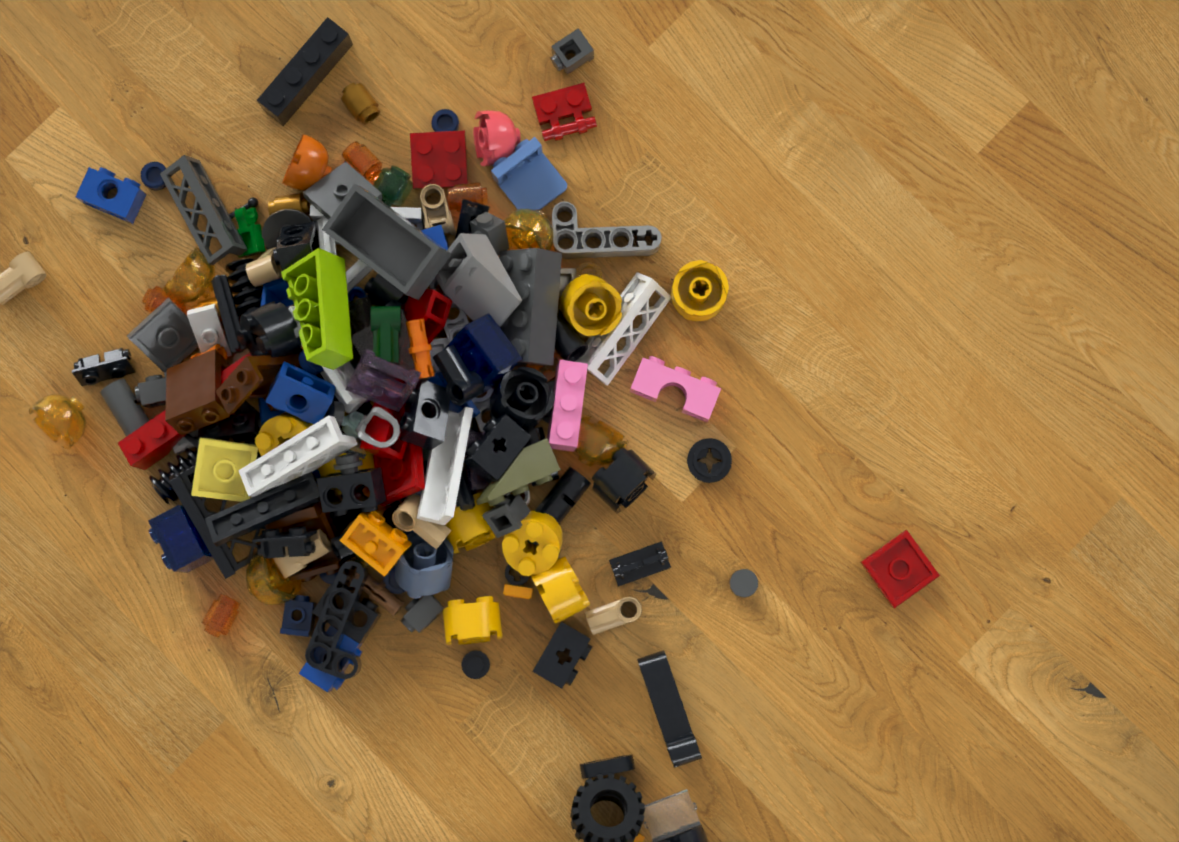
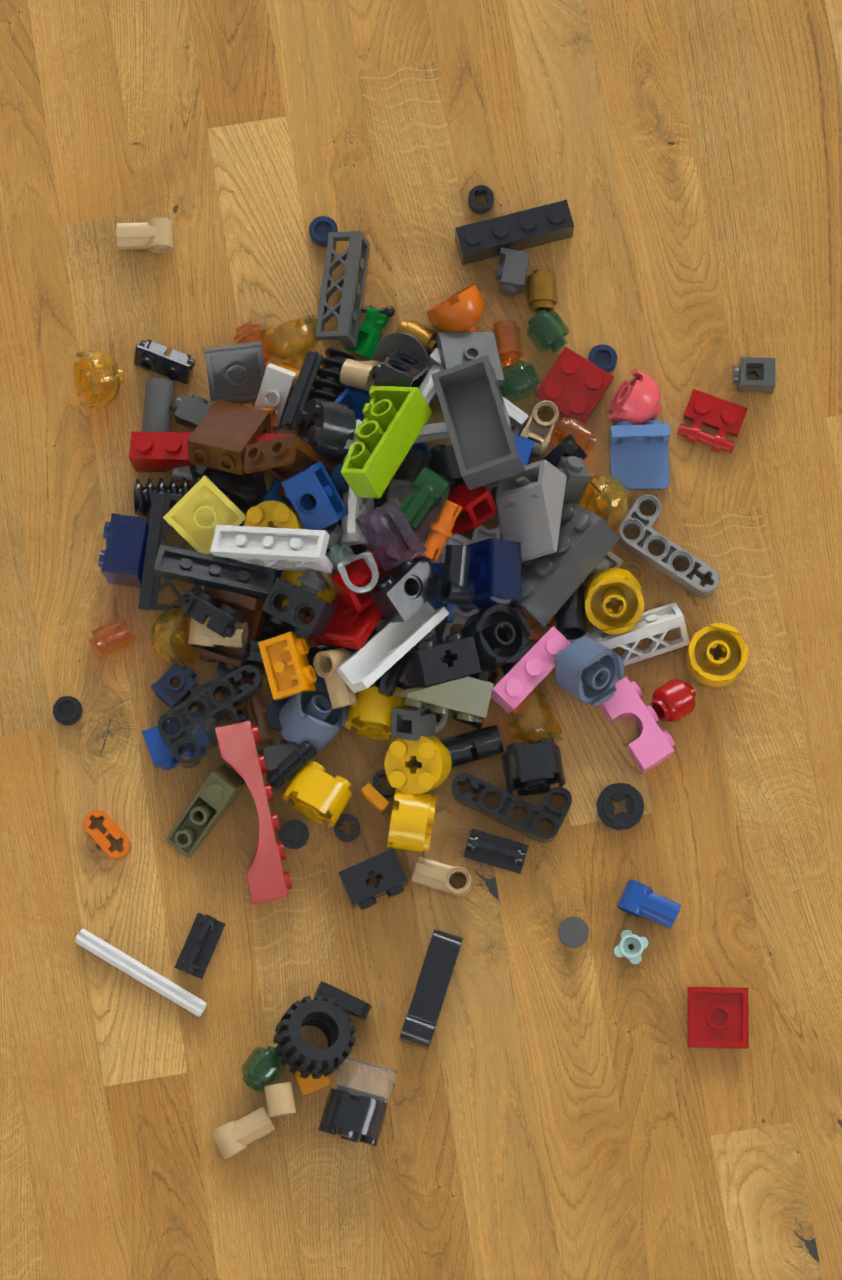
camera: 35 degrees right, 5 degrees down
(96, 186) = (277, 237): blue brick -> none
(228, 697) = (67, 710): none -> black plate
(254, 57) = (478, 190): none -> black bush
(325, 103) = (512, 271): none -> dark grey brick
(331, 764) = (112, 829): none -> orange beam
(386, 634) = (239, 750): none -> arch
(387, 131) = (547, 331): none -> clear green head
(393, 695) = (206, 809): none -> olive slope
(435, 615) = (291, 764): none -> black axle
(466, 804) = (200, 945): none -> black hinge
(512, 620) = (341, 834): none -> black bush
(612, 374) = (588, 670): none -> sand blue brick
(622, 519) = (509, 802): none -> black beam
(691, 349) = (673, 700): none -> red head
(780, 521) = (643, 902): none -> blue piece
(802, 566) = (639, 944): none -> light aqua plate

